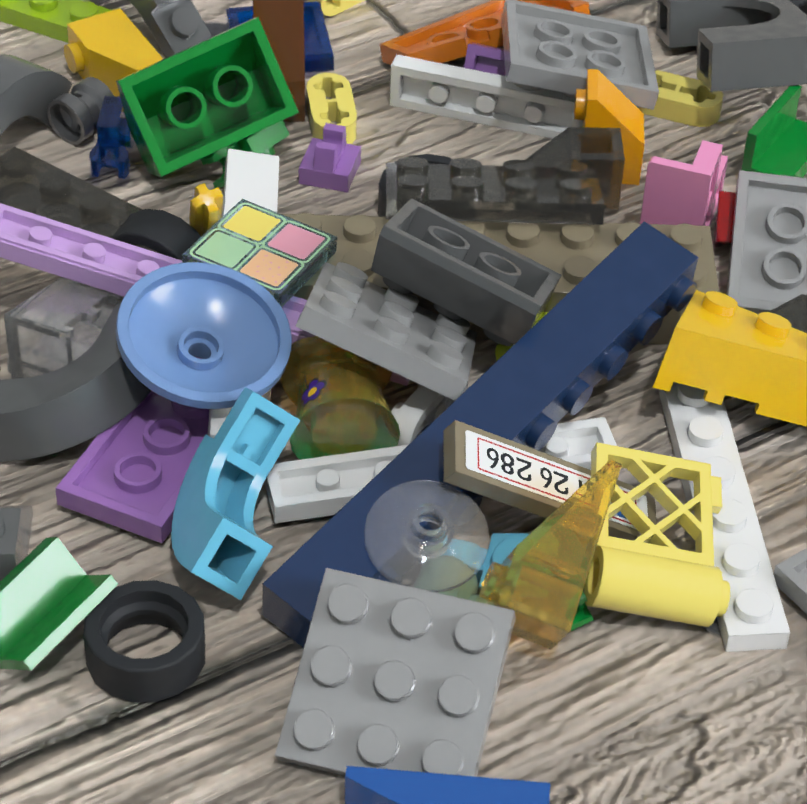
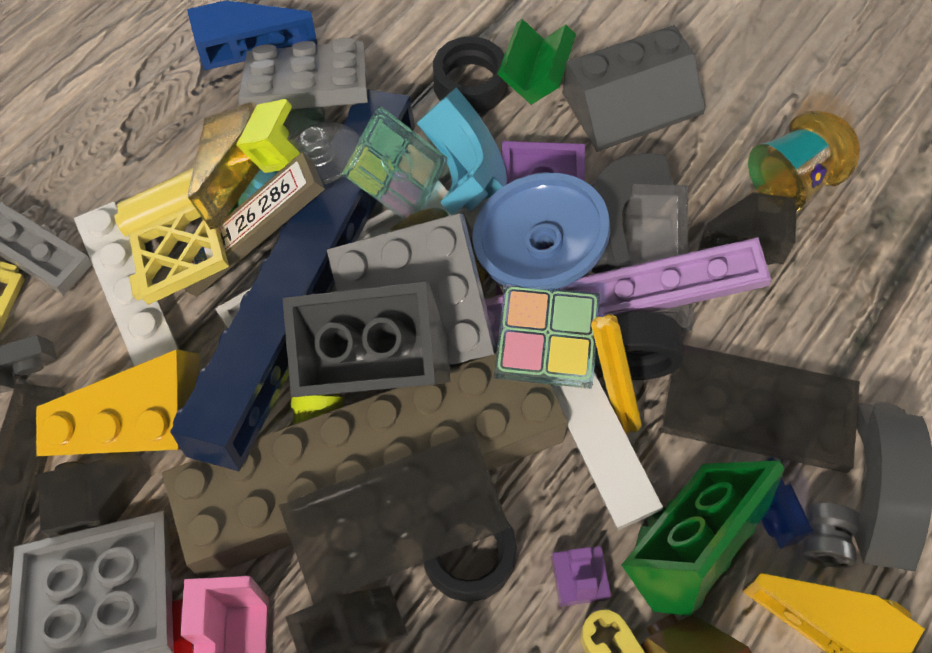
camera: 160 degrees right, 20 degrees up
(330, 488) = (395, 164): none -> clear light blue tile
(489, 525) = (266, 137): none -> neon yellow panel

